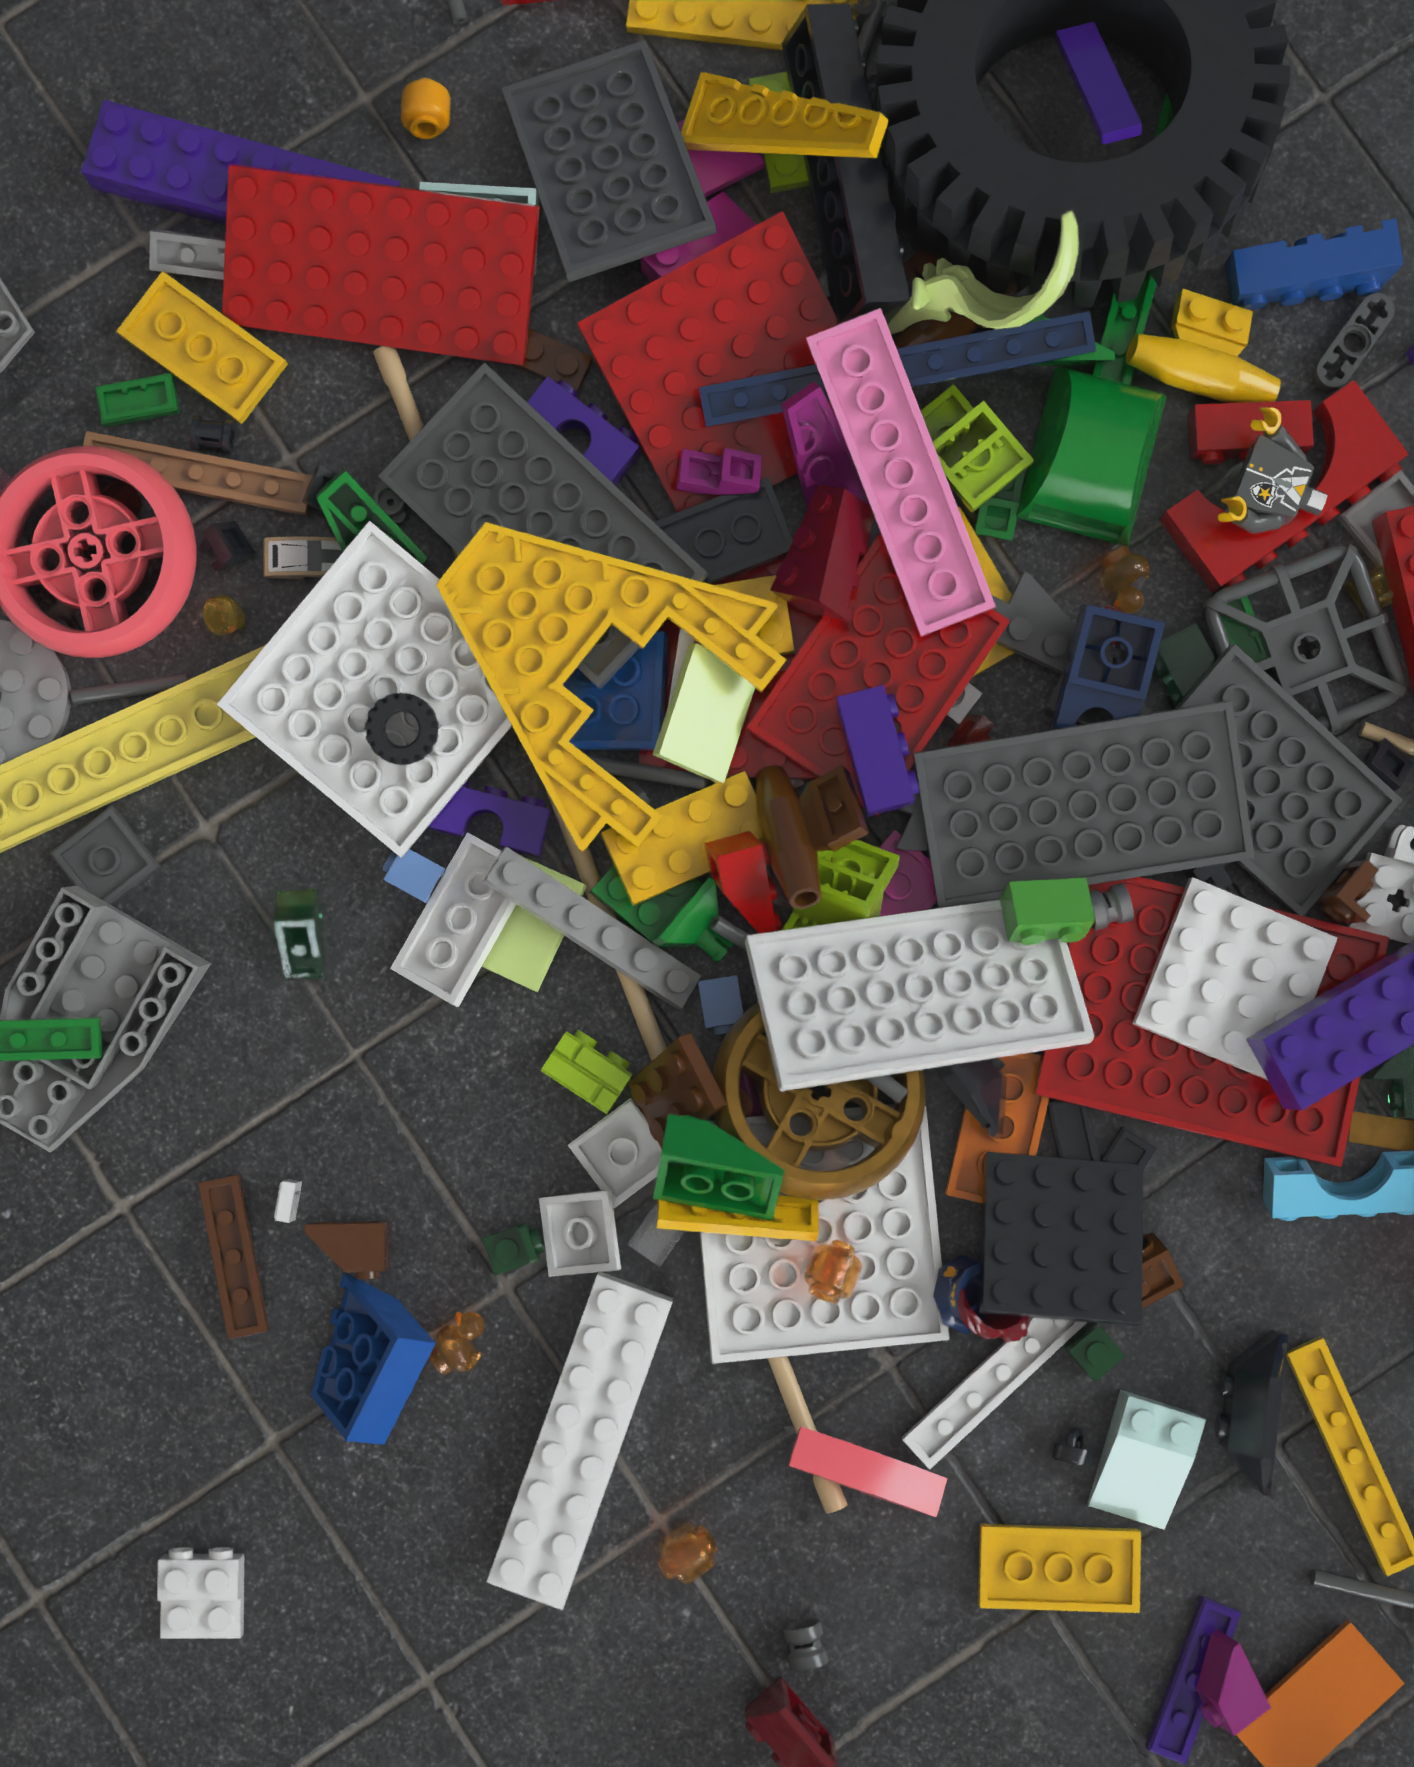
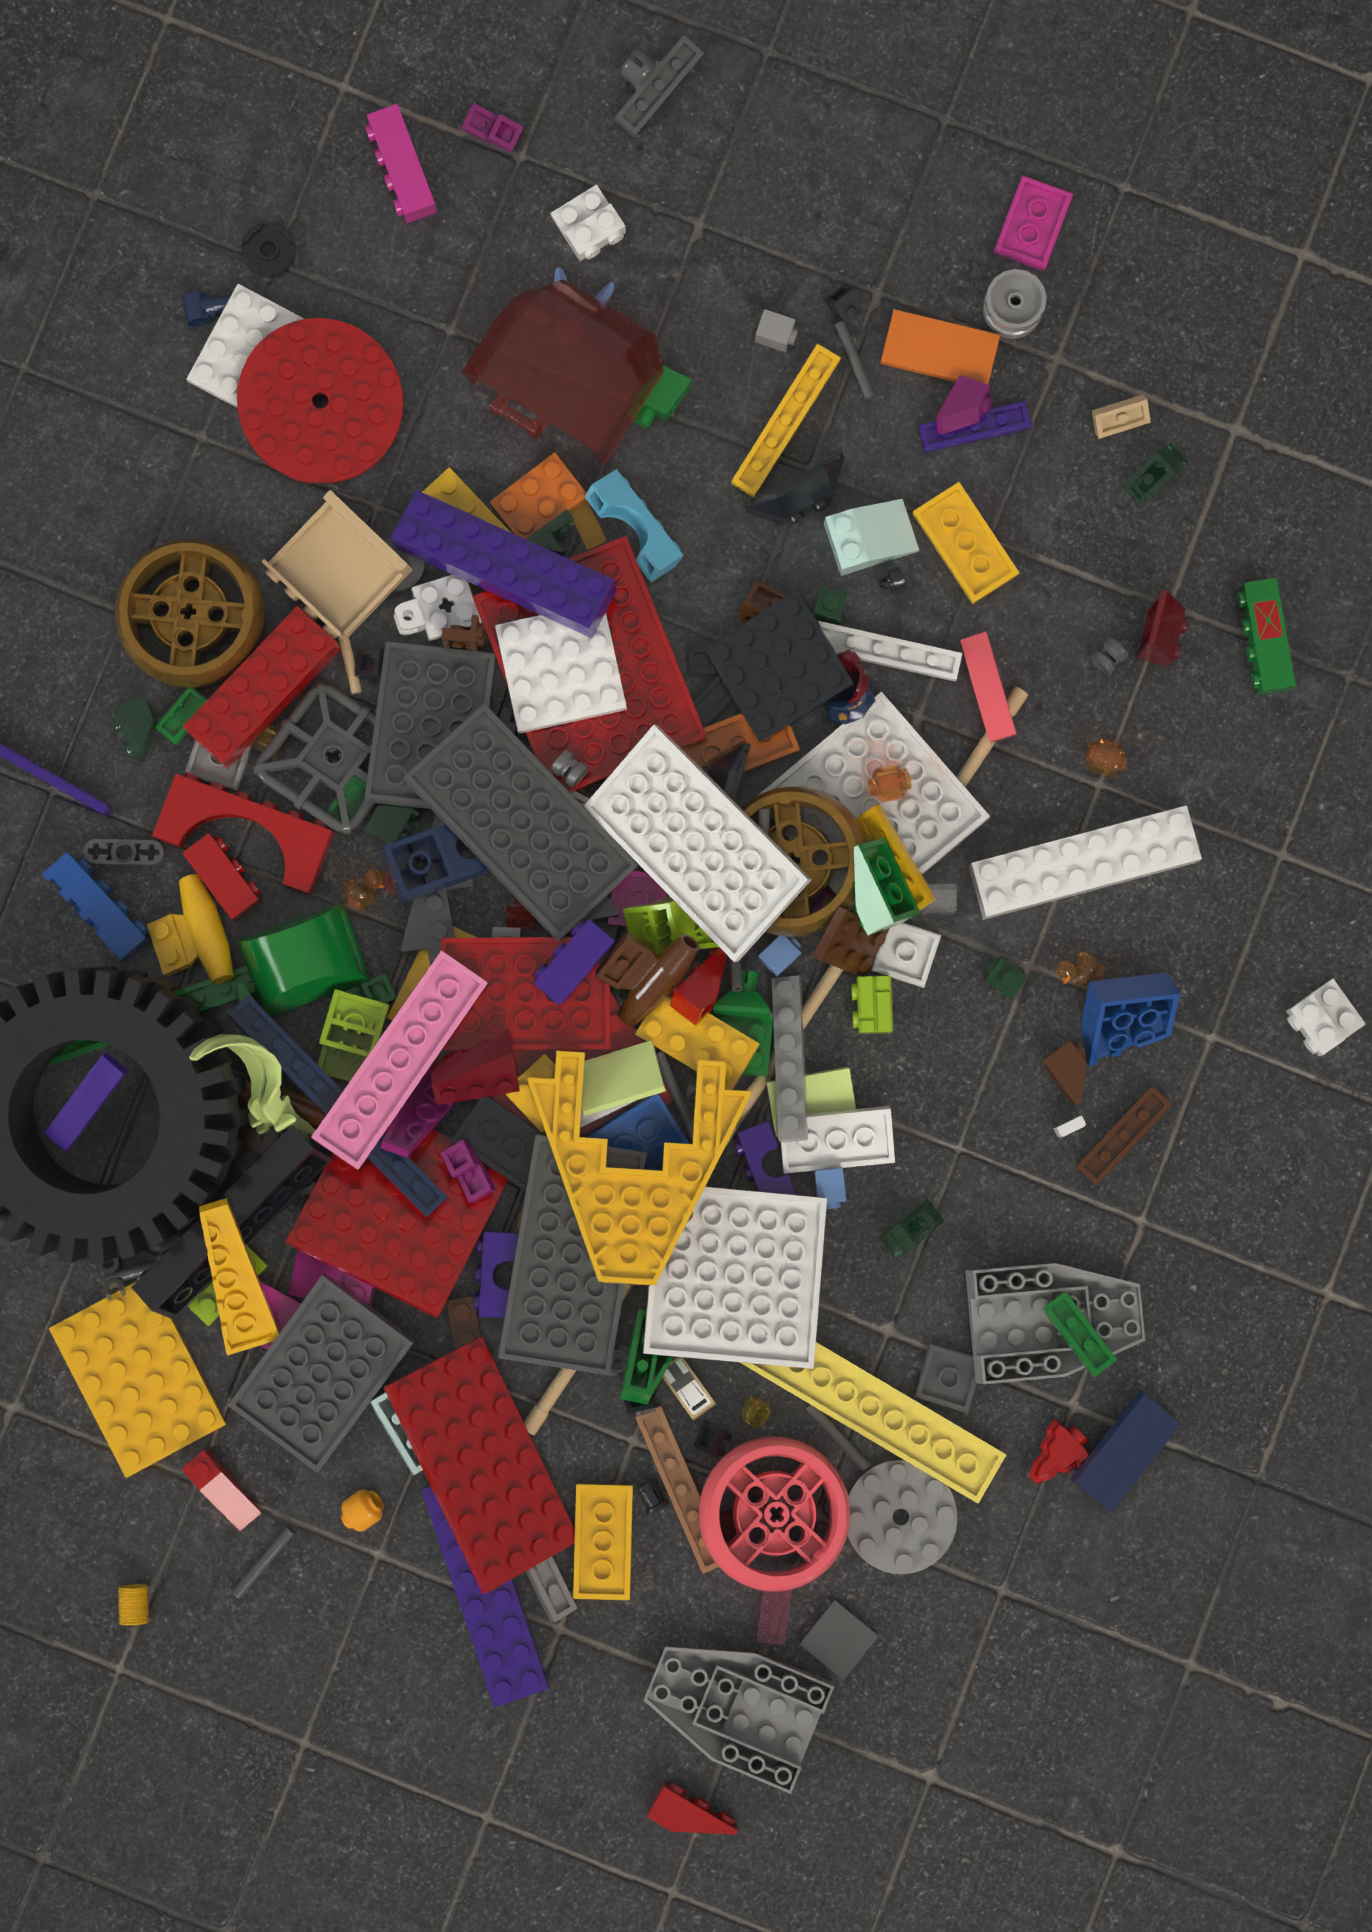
camera: 120 degrees left, 0 degrees up
(137, 400) = (662, 1558): green plate -> none
(376, 728) = (770, 1243): black tyre -> none
(580, 1233) = (969, 944): white slope -> none
(1047, 910) = (597, 801): bright green brick -> none
(1272, 480) = (251, 841): dark grey torso -> none

